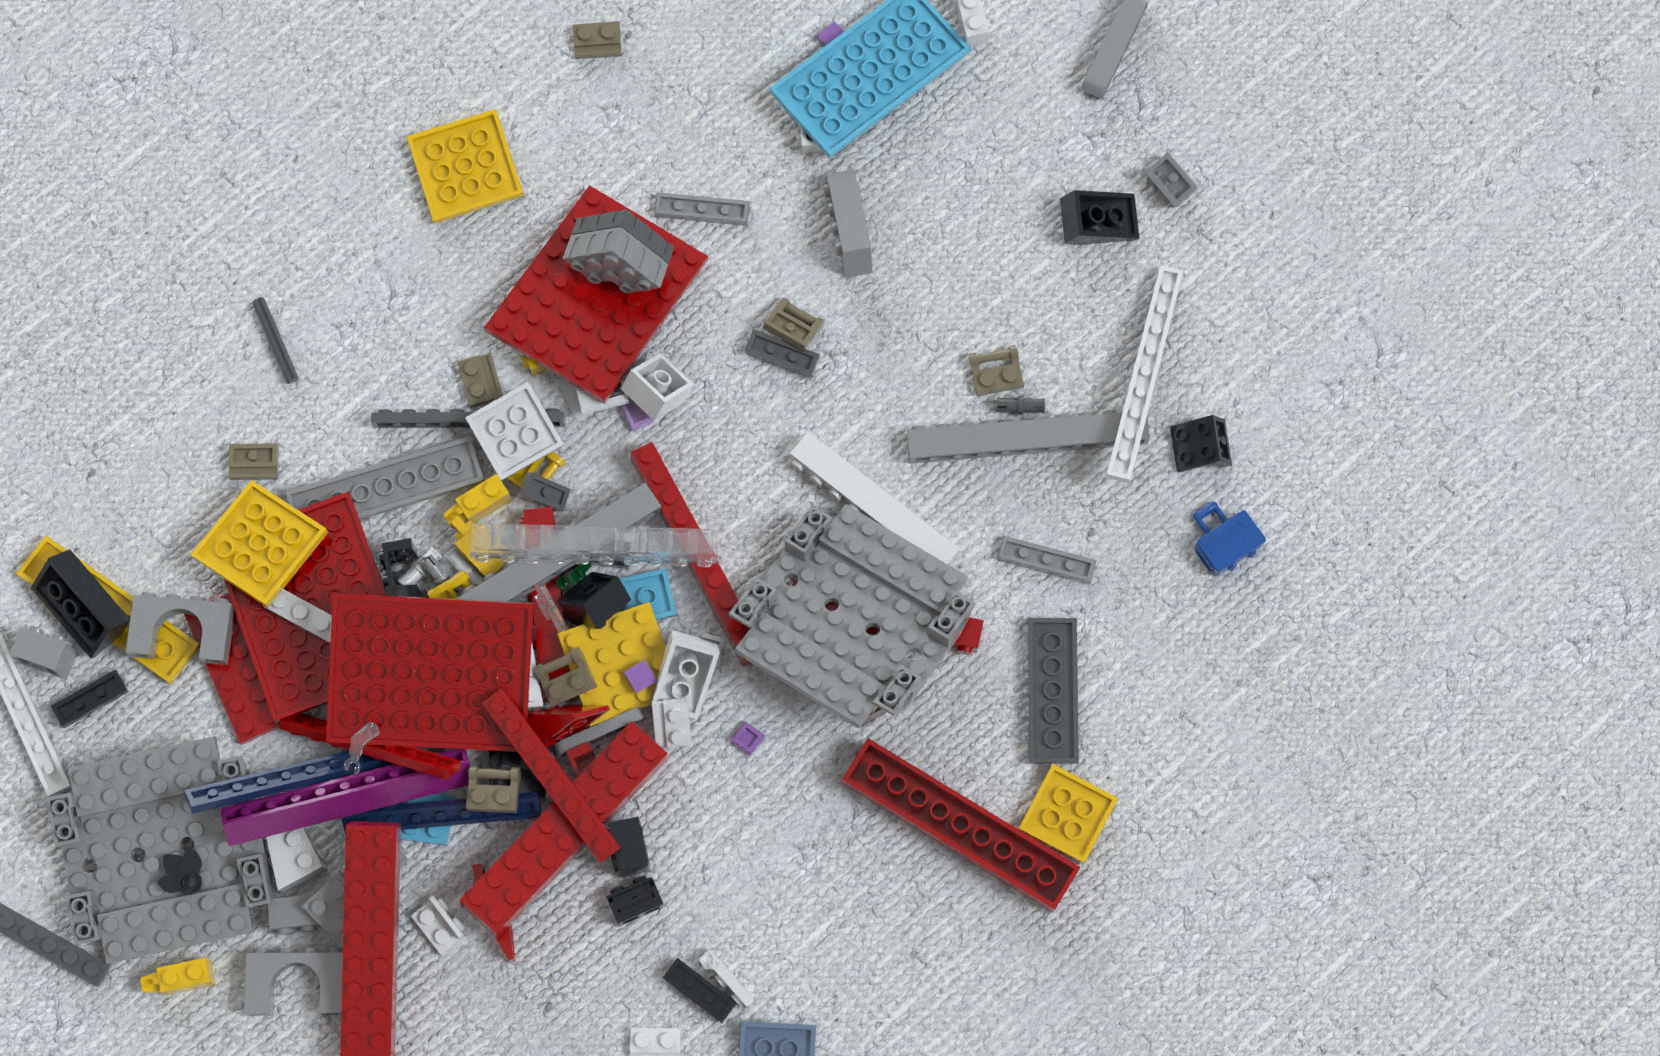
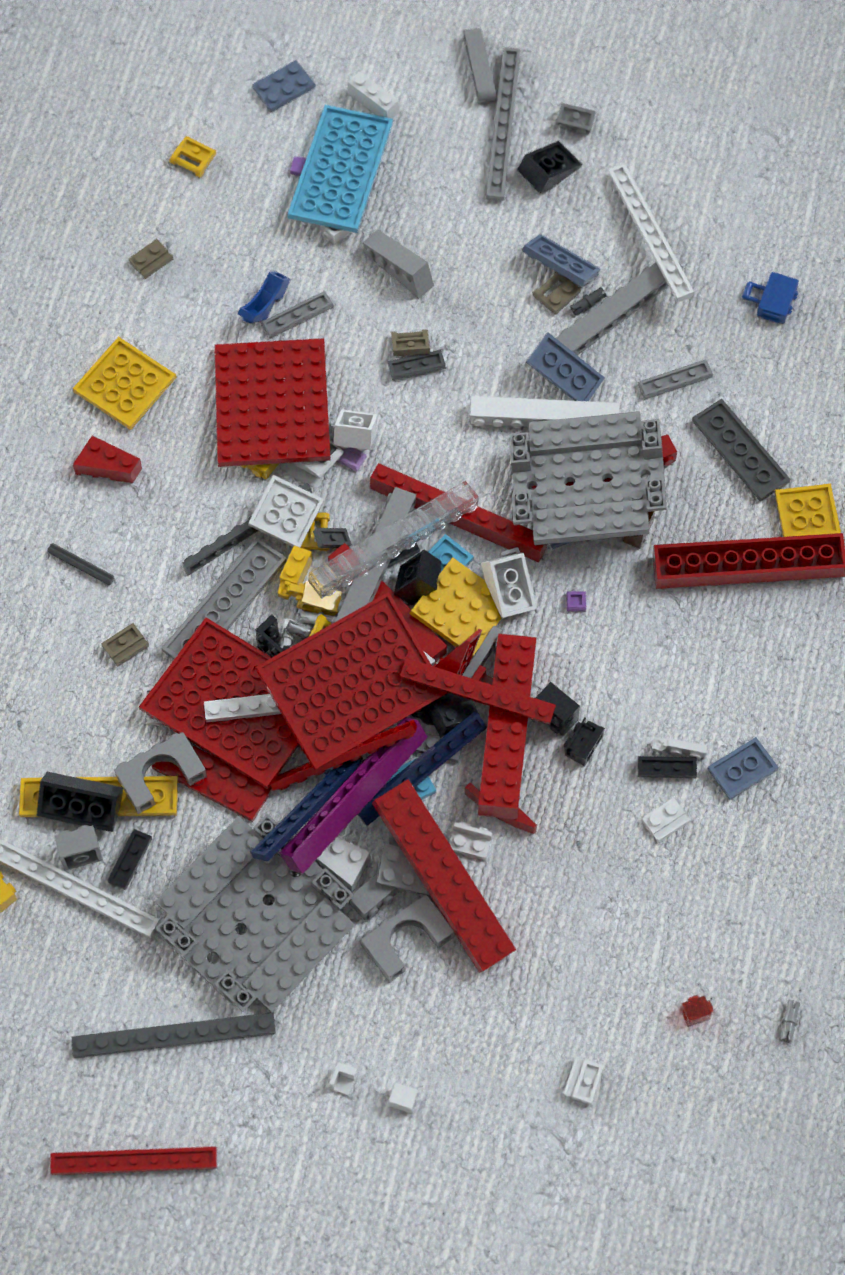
camera: 35 degrees left, 10 degrees down
(179, 870) = (277, 917): black plate -> none
(180, 977) = (328, 986): yellow hinge -> none
(259, 543) = (174, 682): yellow plate -> none
(359, 740) = (337, 754): clear arm -> none
(379, 242) = (107, 461): none -> red wedge
(480, 379) = (235, 502): dark tan plate -> none
(493, 797) = (449, 731): dark tan plate -> none
(548, 607) = (399, 594): clear plate -> none
(569, 684) = (442, 636): dark tan plate -> none
(573, 575) = (391, 572): dark green plate -> none
(618, 250) = (272, 358): light grey piece -> none
(640, 676) = (482, 604): medium lavender tile -> none
(667, 174) = (262, 303): none -> blue arch
(672, 722) = (523, 618): white plate -> none
(929, 470) = (564, 369): none -> sand blue plate
(1025, 338) = (561, 260): none -> sand blue plate
(1088, 133) = (503, 124): none -> light grey plate
(1201, 443) = (713, 254): black bracket -> none

